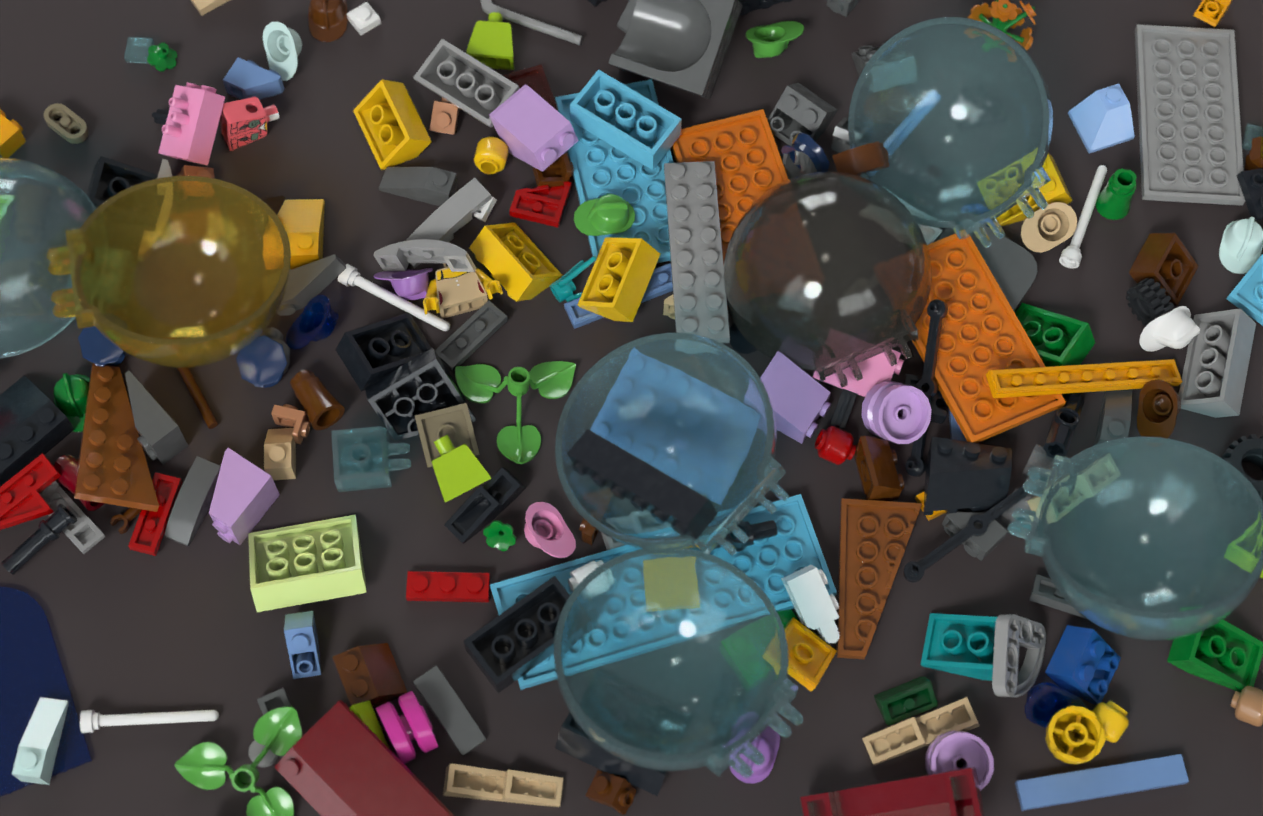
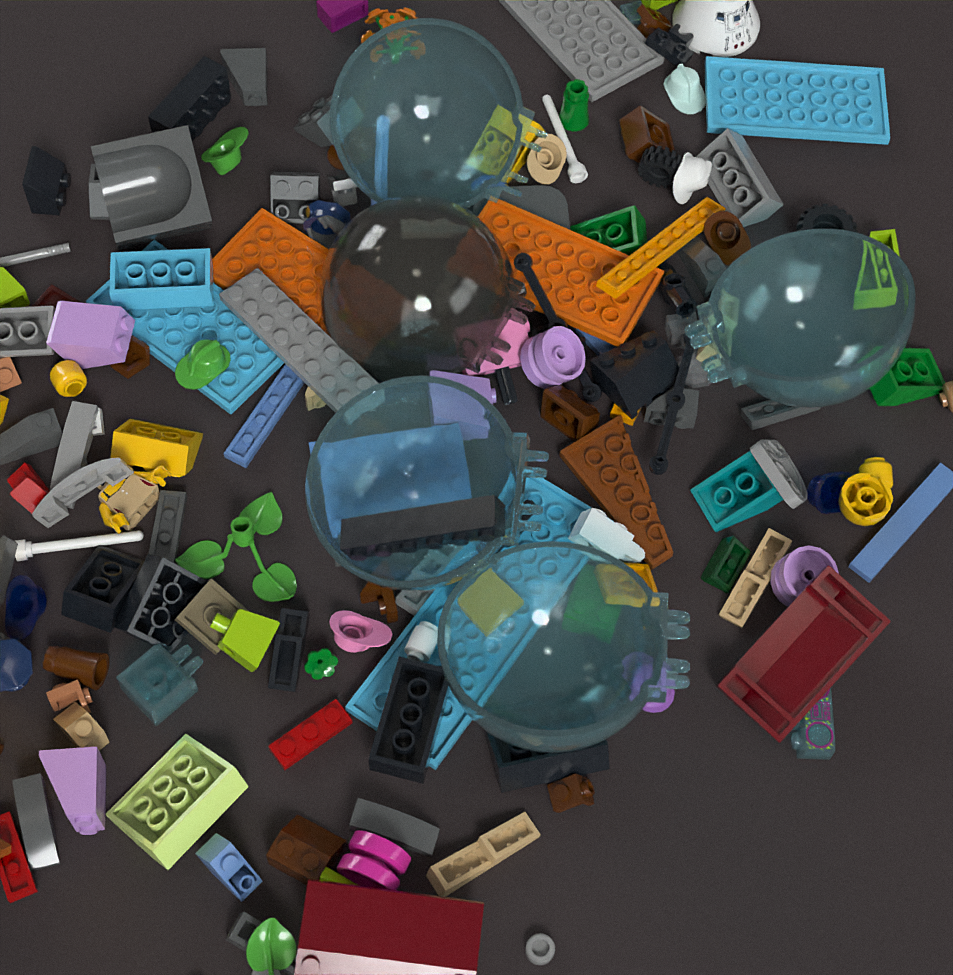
camera: 40 degrees left, 5 degrees down
(391, 226) = (27, 487): none -> red slope
(408, 283) = (80, 522): medium lavender piece -> none
(541, 204) = (141, 390): red wing -> none
(564, 287) = (213, 439): teal plant -> none
(619, 278) = (255, 402): yellow slope -> none
(835, 445) = (523, 416): red head -> none
(862, 159) = (377, 189): reddish brown brick -> none
(1083, 664) = (825, 446): blue slope -> none
(1103, 119) = (524, 59): light blue slope -> none

